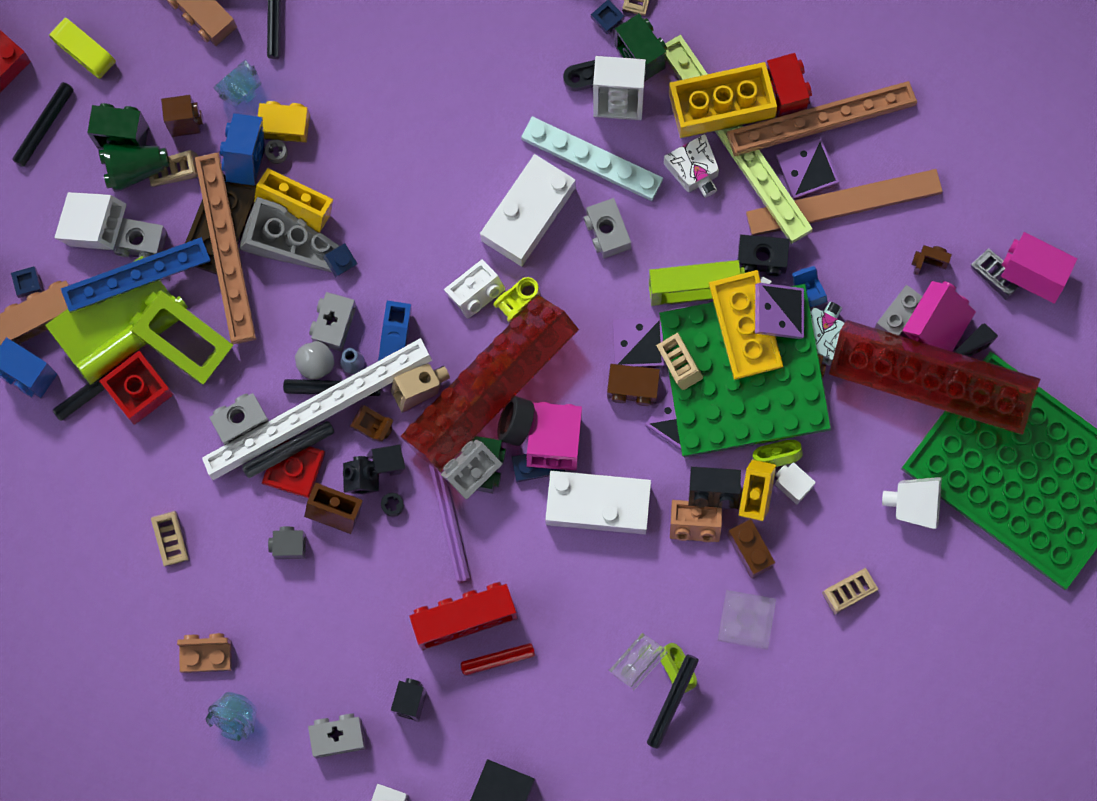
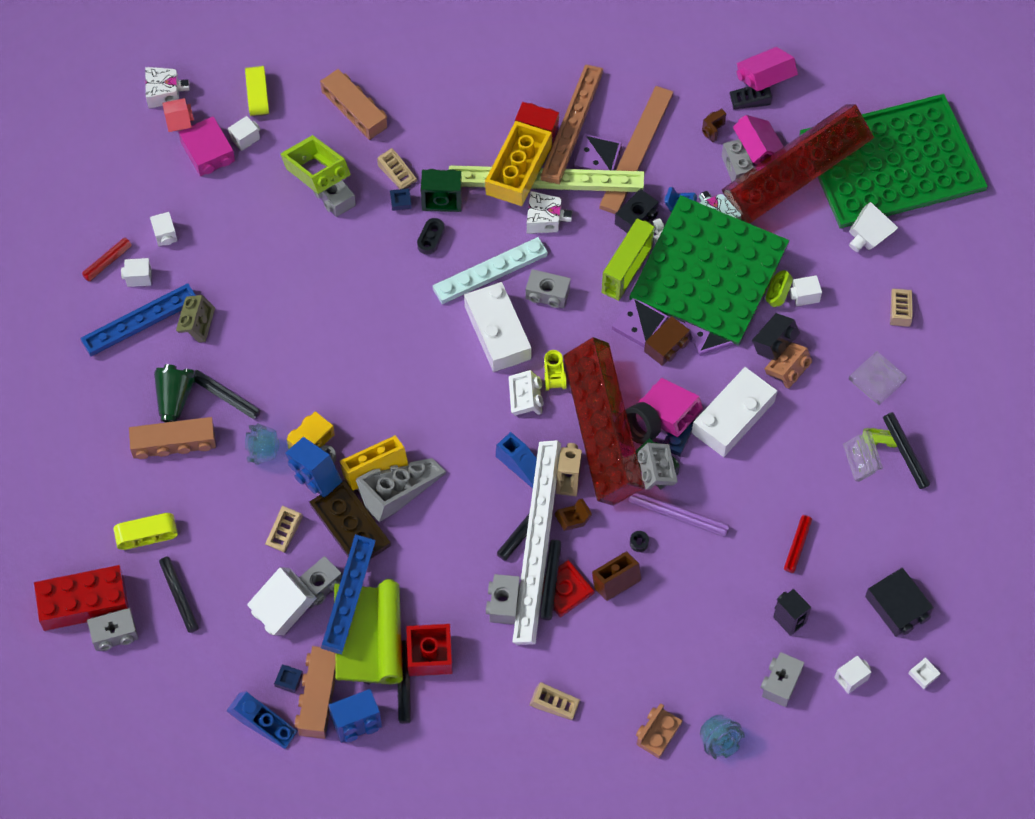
camera: 60 degrees left, 15 degrees down
(117, 125) = (228, 540): dark green brick -> none
(131, 163) = (261, 549): dark green cone -> none
(141, 329) = (398, 612): lime piece -> none
(181, 115) = (253, 493): reddish brown brick -> none
(225, 248) = (373, 527): nougat tile -> none
(288, 543) = (619, 623): dark grey brick -> none
(314, 360) = (499, 523): light grey hair -> none
(336, 334) = (478, 485): light grey brick -> none
(340, 260) = (439, 463): dark blue plate -> none
(352, 366) = (517, 500): sand blue cone -> none
(360, 476) = (605, 544): black brick -> none
(387, 460) = (608, 518): black panel -> none
(463, 616) = (755, 540): red brick -> none
(618, 87) = (463, 212): white brick -> none
(686, 375) = (682, 308): tan slope -> none
(735, 311) = (684, 241): yellow tile -> none
(751, 548) = (833, 342): reddish brown brick -> none
(757, 490) = (795, 306): yellow brick -> none
(779, 310) = (690, 215): medium lavender tile -> none
(978, 341) = (787, 130): black slope -> none

